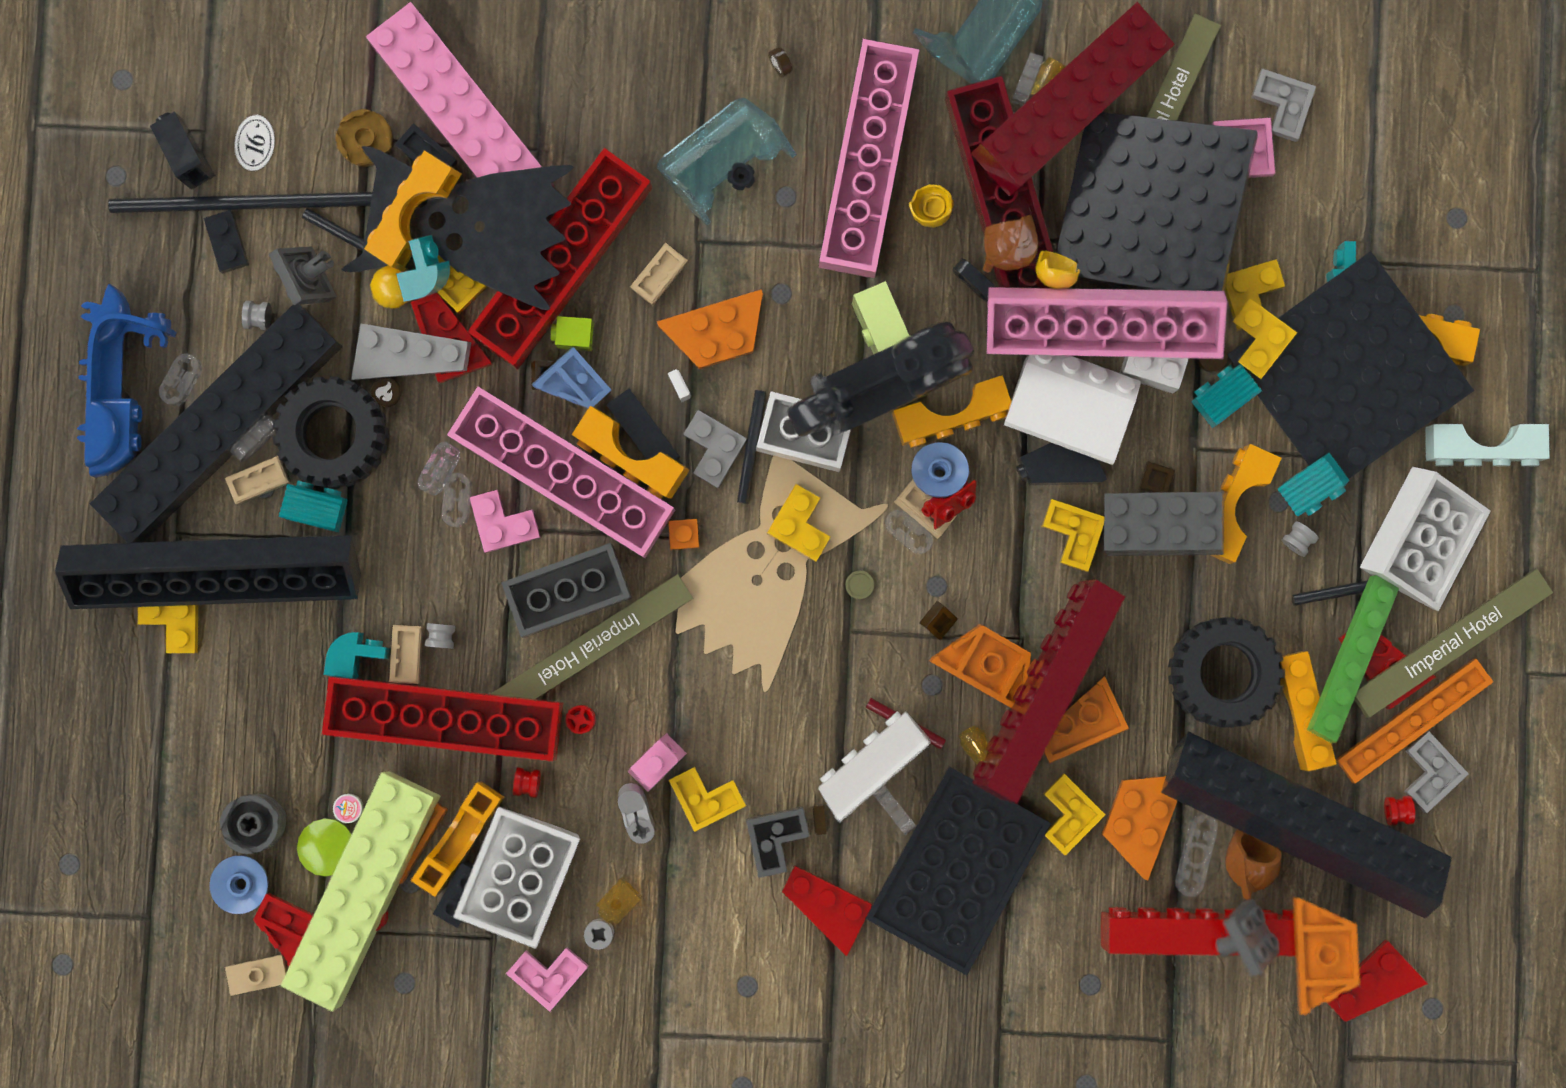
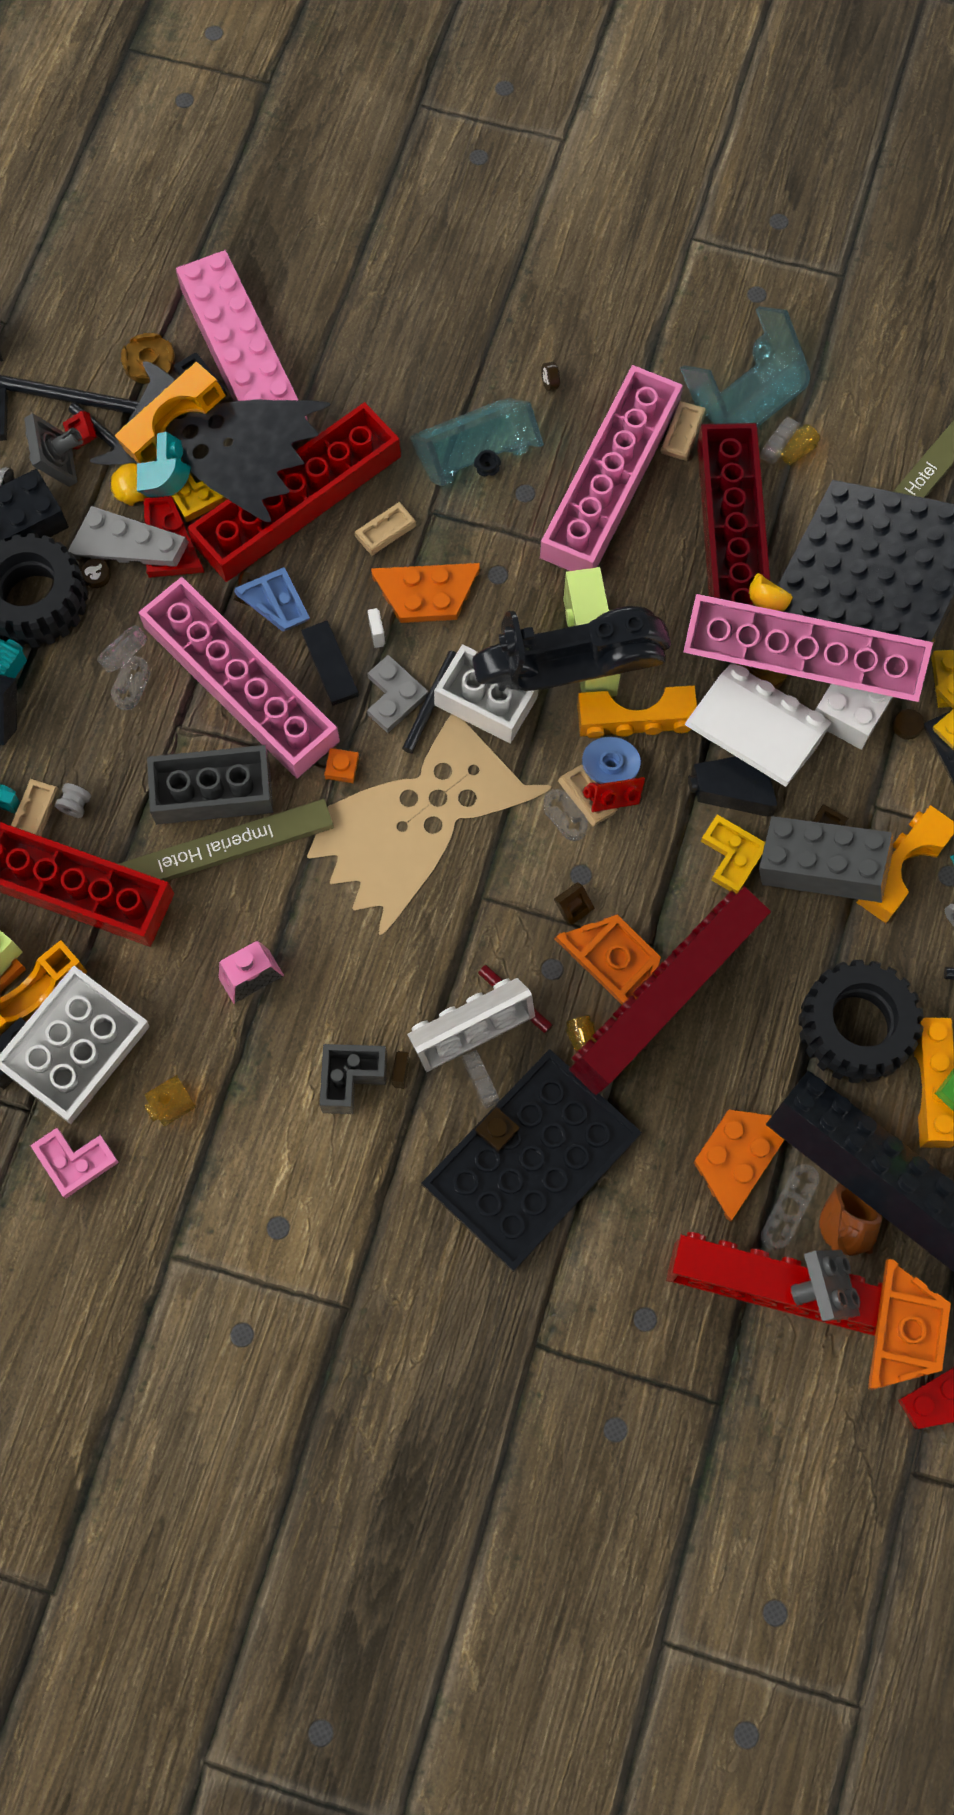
camera: 15 degrees right, 15 degrees down
(254, 142) = (47, 342): white sticker -> none
(322, 239) = (83, 423): none -> red plate
(496, 529) = (163, 720): bright pink plate -> none
(526, 782) = (113, 960): red wheel -> none
(573, 332) = (292, 556): lime brick -> none
(576, 718) = (181, 908): red wheel -> none
(600, 929) = (144, 1135): light grey wheel -> none
(602, 434) = (331, 695): light orange arch -> none
(632, 800) = (214, 1032): light grey piece -> none
(703, 806) = (285, 1029): yellow plate -> none
(792, 526) = (451, 783): yellow plate -> none
(827, 906) = (385, 1163): red wing -> none
(859, 584) = (503, 854): olive piece -> none
(921, 855) = (497, 1129): none -> dark brown plate
(928, 91) = (683, 431): none -> tan plate
(931, 205) = (662, 526): yellow hair -> none
(973, 278) = (683, 595): black beam -> none
(1010, 244) = (730, 558): dark orange helmet -> none
(1072, 99) = (818, 456): dark red brick -> none
(1078, 814) = (673, 1132): yellow plate -> none
(1087, 723) = (704, 1042): orange wing -> none
(1225, 395) = (914, 759): teal brick -> none

